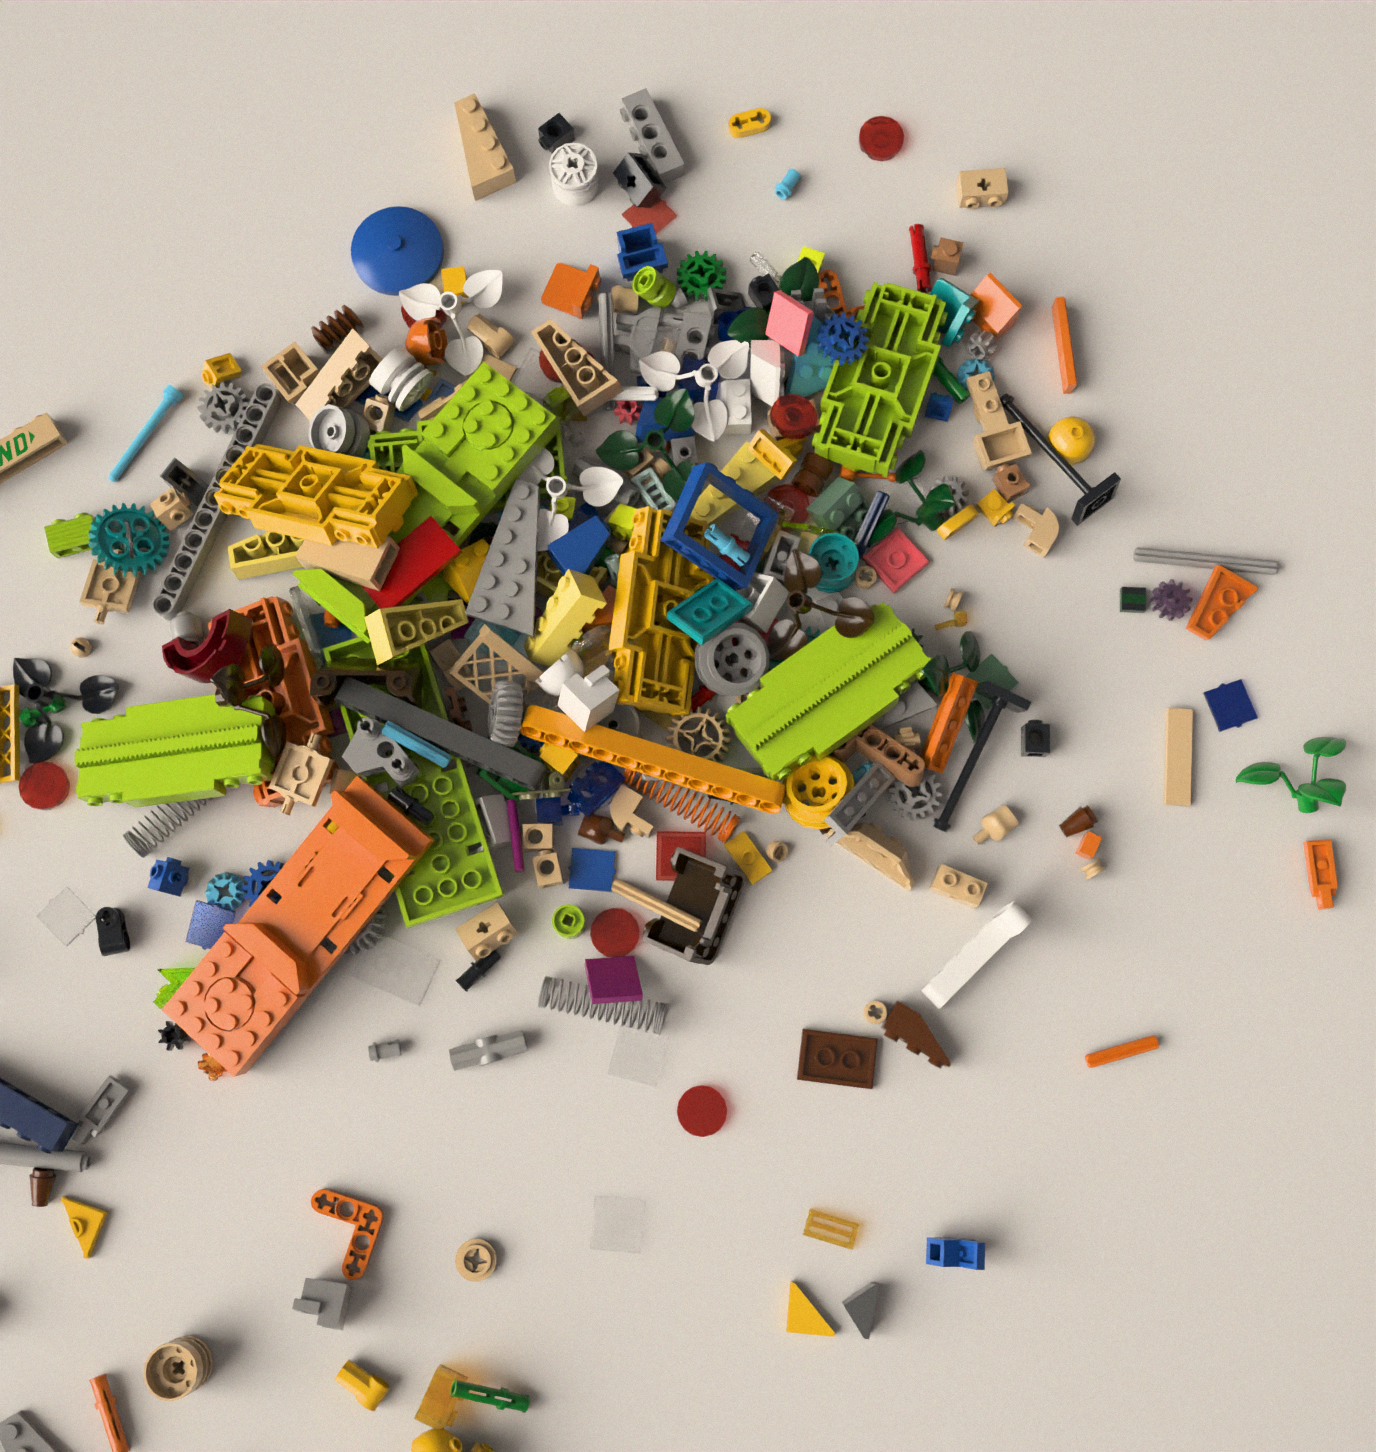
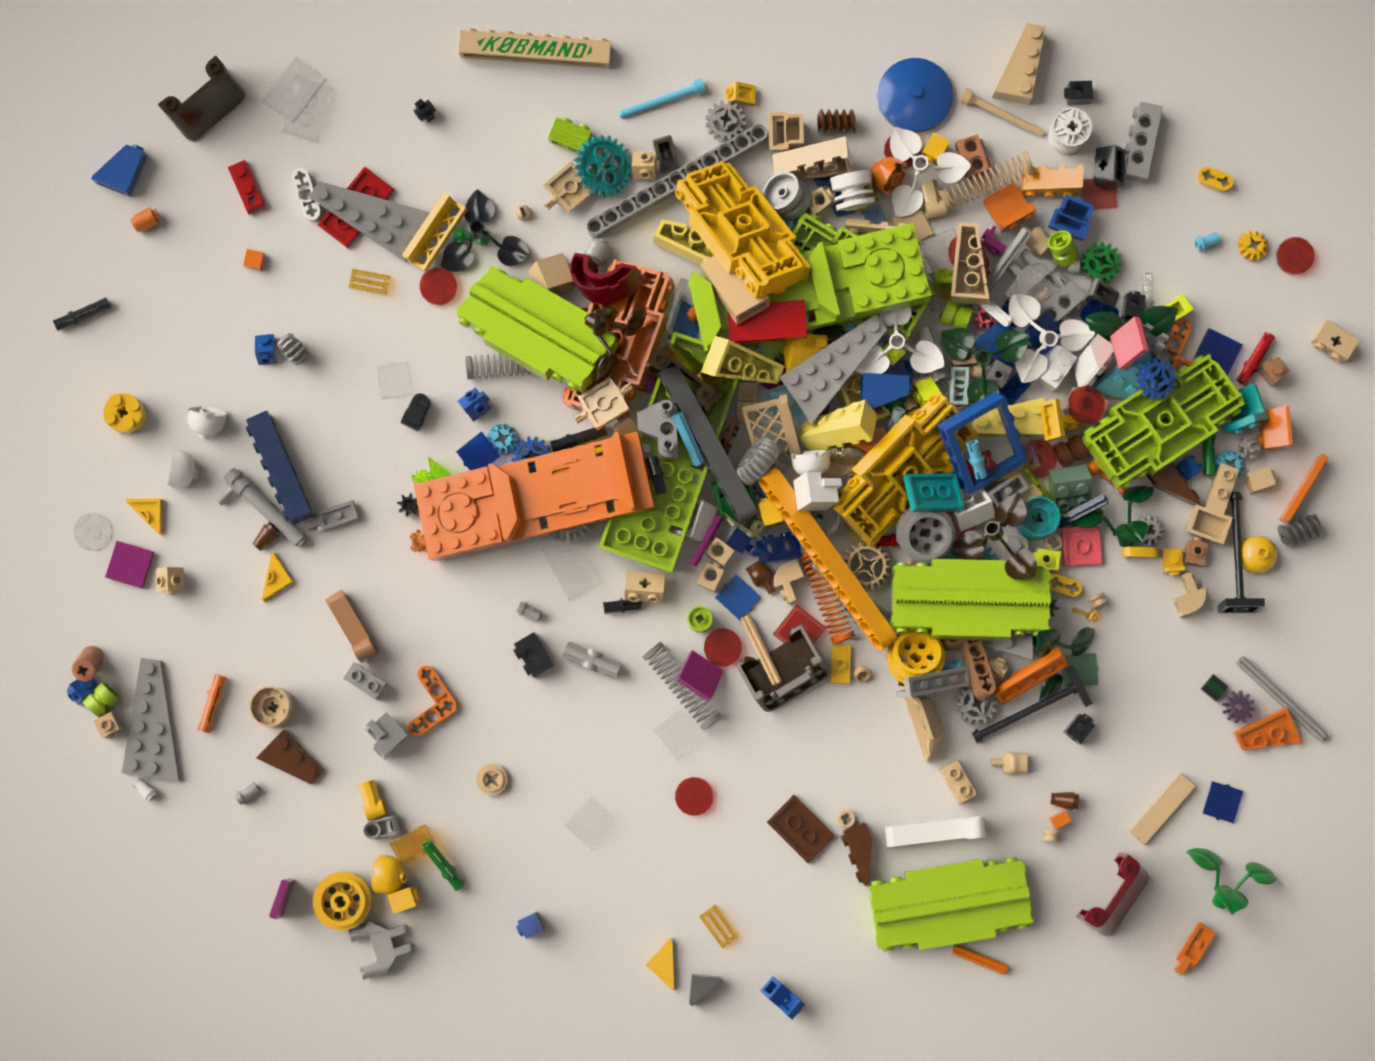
camera: 35 degrees right, 5 degrees up
(154, 683) = (552, 274): none -> tan plate
(228, 1221) = (352, 626): none -> medium nougat beam
(241, 1406) = (291, 758): none -> reddish brown wing
(261, 1259) = (365, 681): none -> light grey brick
(305, 829) = (572, 440): none -> black pin
(397, 1403) = (384, 827): none -> light grey piece
(438, 1093) = (528, 644): none -> black brick
(453, 214) = (969, 98): none -> tan piece
(502, 262) = (976, 156): none -> nougat brick
(559, 230) = (945, 195): none -> tan piece
(582, 334) = (993, 246): none -> magenta bracket
(594, 234) = (1052, 182): none -> light orange wedge
(597, 428) = (956, 315): none -> lime wheel
(632, 1387) = (530, 925): none -> blue brick
(711, 452) = (1014, 389): none -> clear blue bracket
(837, 165) = (1250, 253): none -> yellow gear
(878, 270) = (1220, 347): none -> clear blue tile
(879, 591) = (1054, 559): none -> neon yellow brick
(909, 604) = (1065, 581): none -> yellow beam
(938, 433) = (1173, 484): none -> reddish brown slope
(1016, 367) = (1260, 479): none -> tan brick
(1048, 1018) = (950, 904): none -> lime piece
(1092, 387) = (1300, 529): none -> flat silver piece
(1209, 848) = (1134, 882): none -> dark red windscreen

